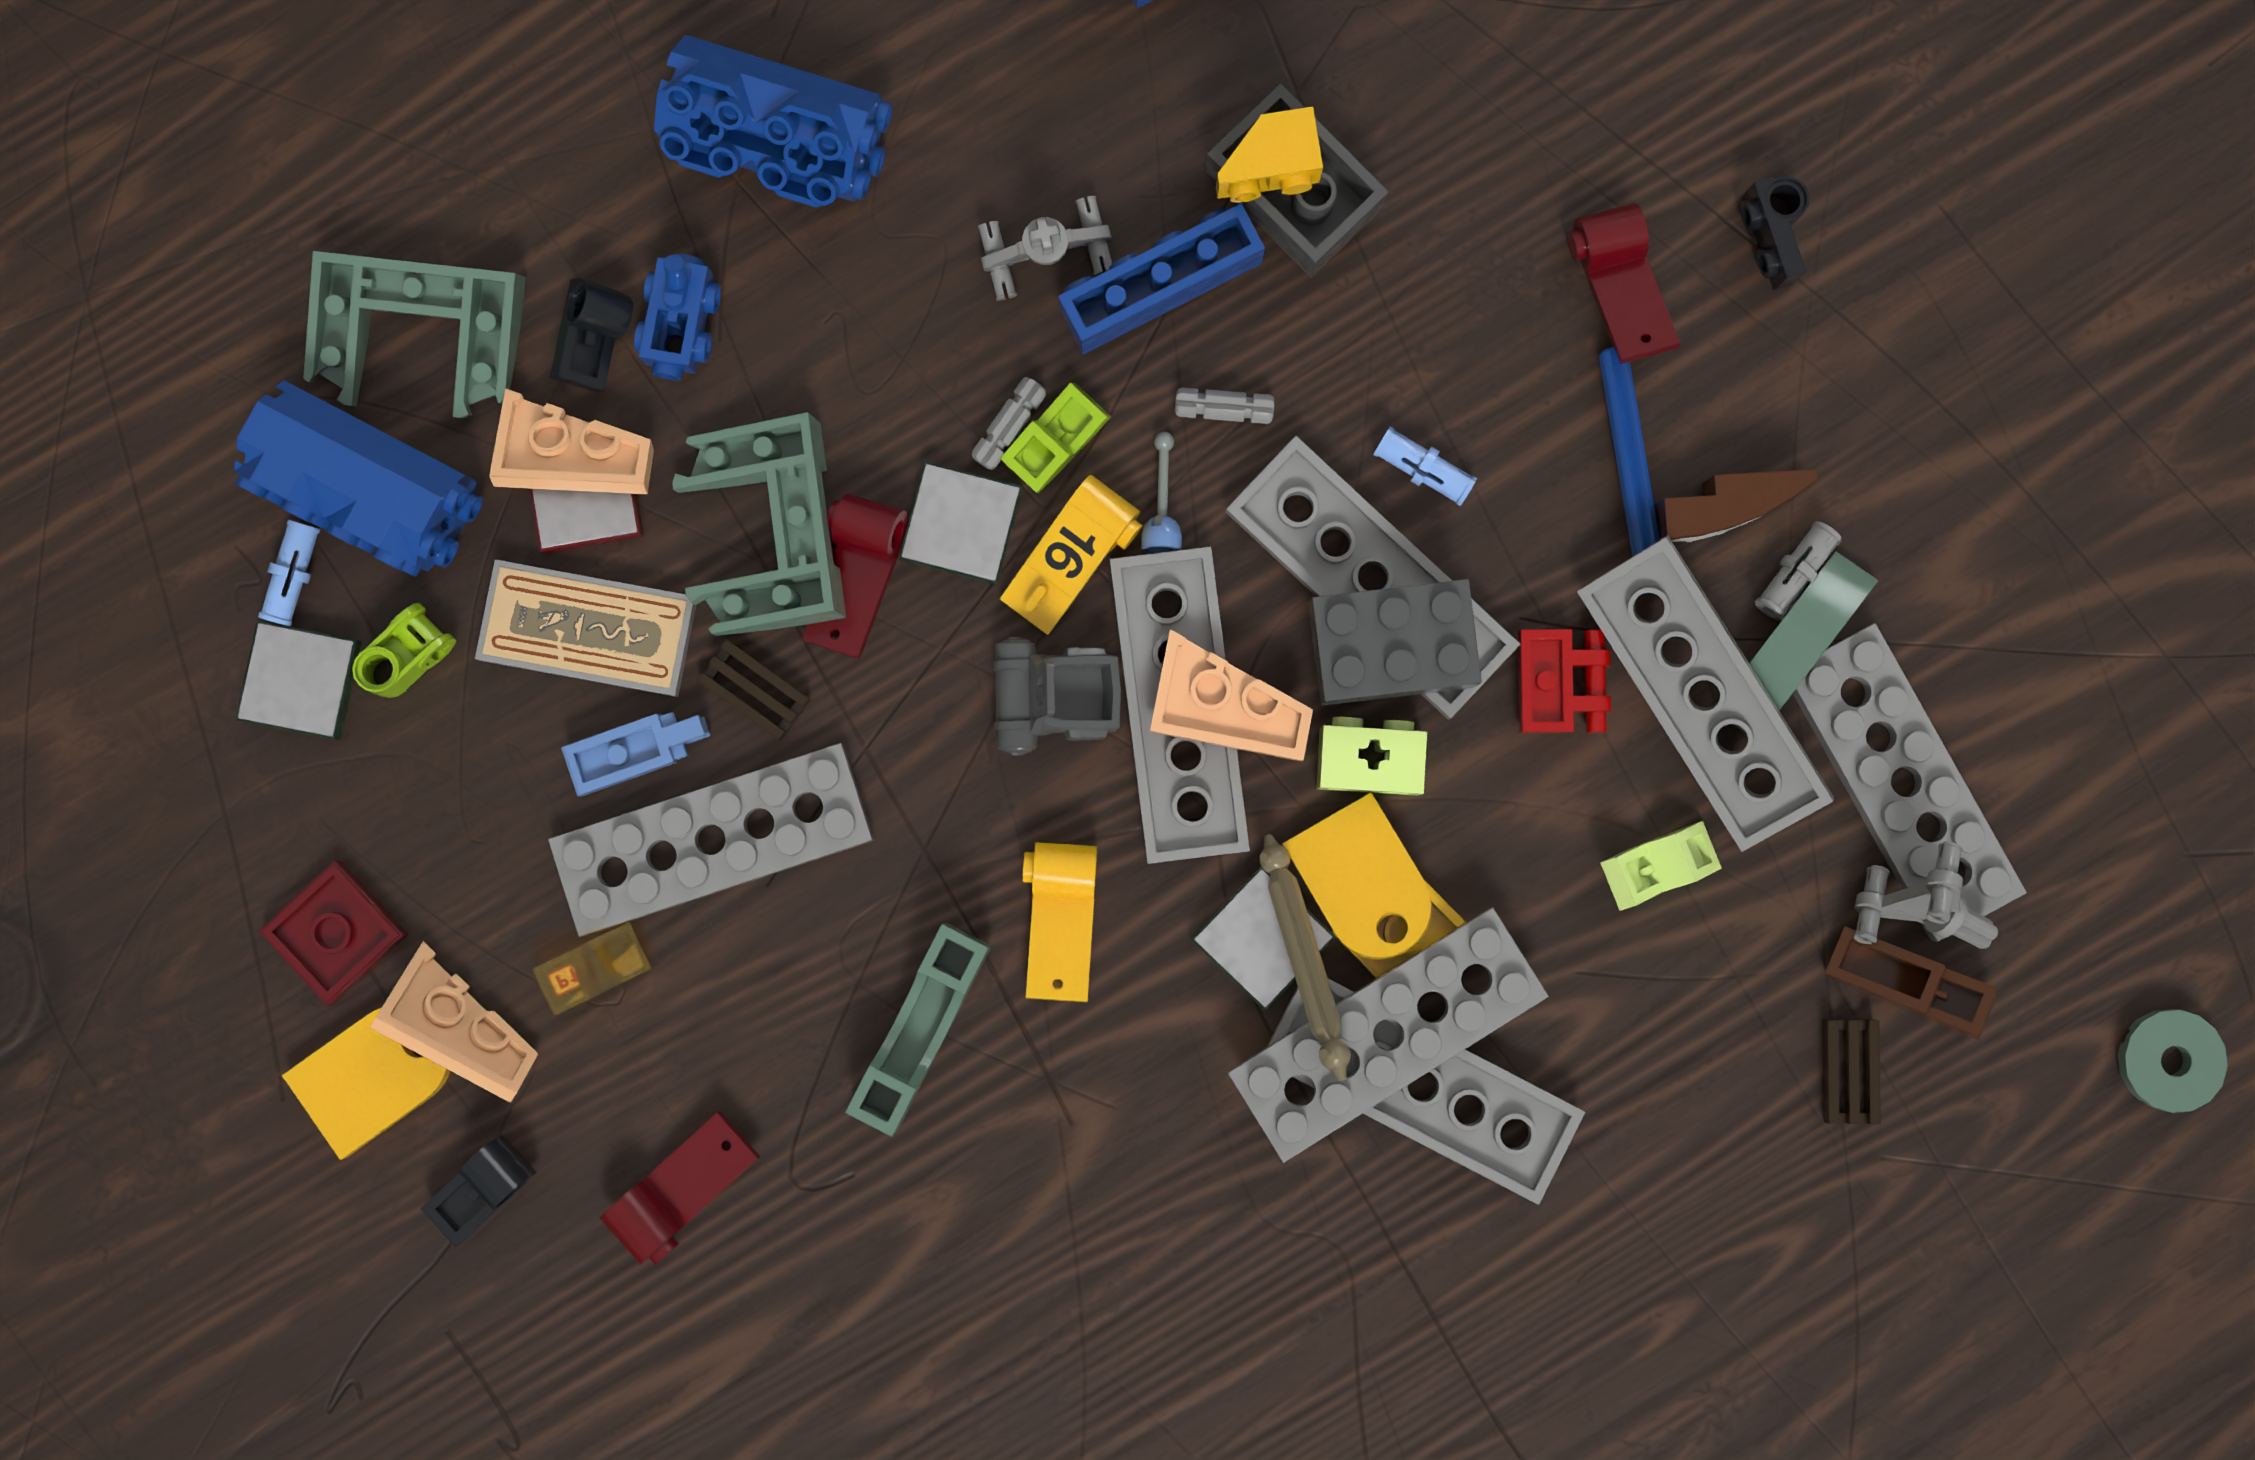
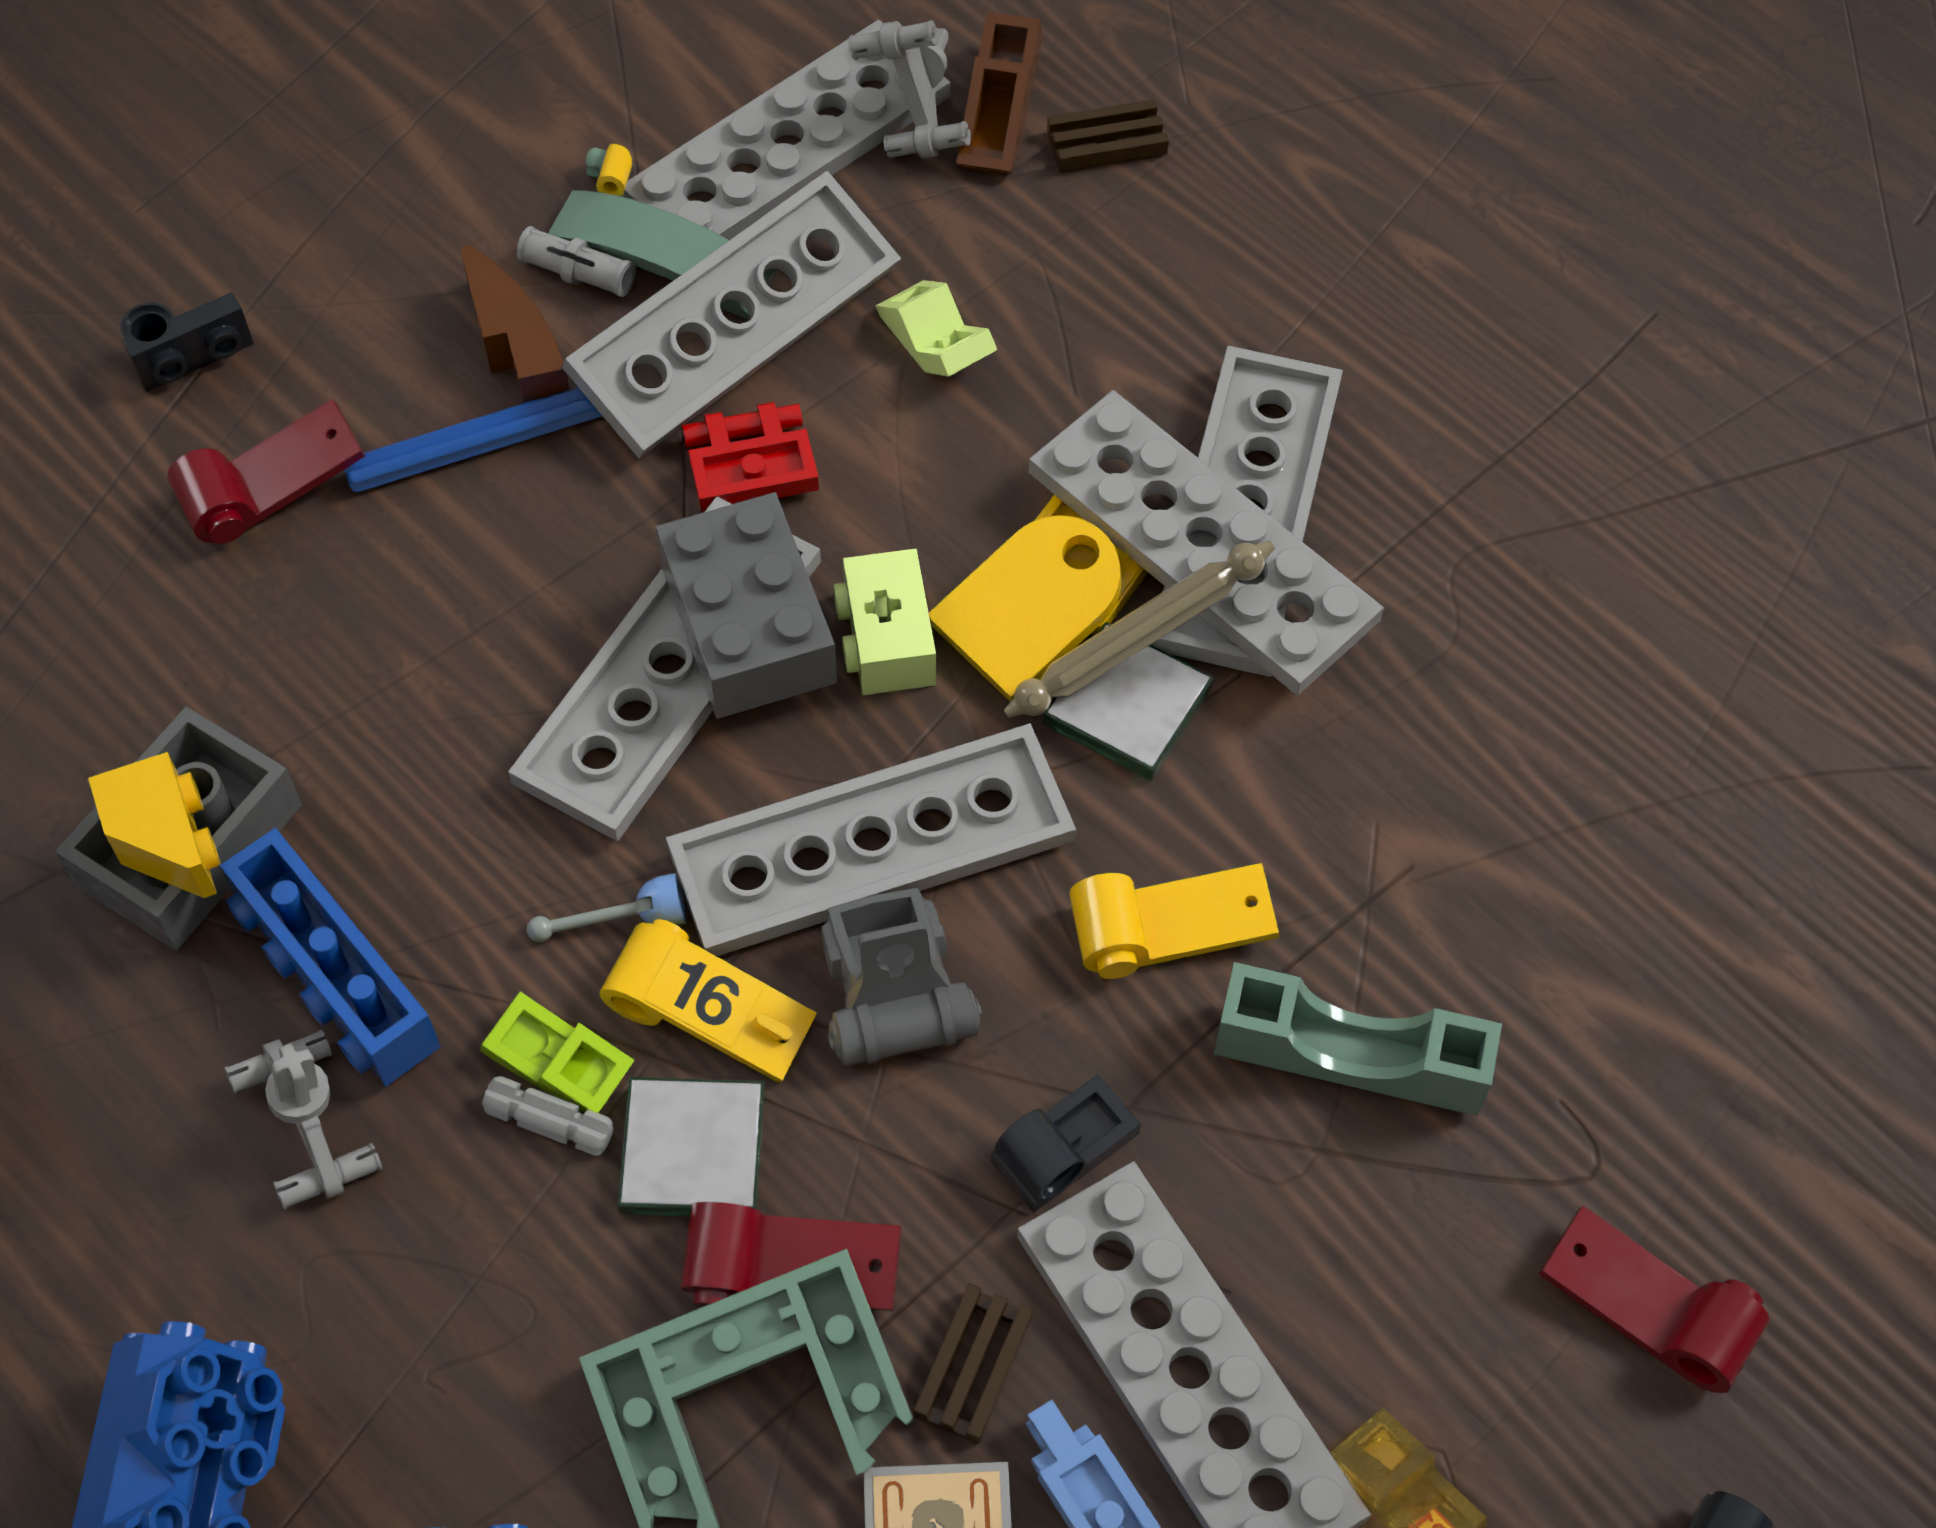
camera: 105 degrees left, 25 degrees down
(896, 793) = (1056, 1148): none -> black plate
(1223, 706) = (862, 776): light nougat wing -> none
(1224, 405) = (481, 867): light grey axle -> none
(1425, 466) = (520, 637): light blue pin -> none
(1891, 621) = (610, 167): none -> yellow arm

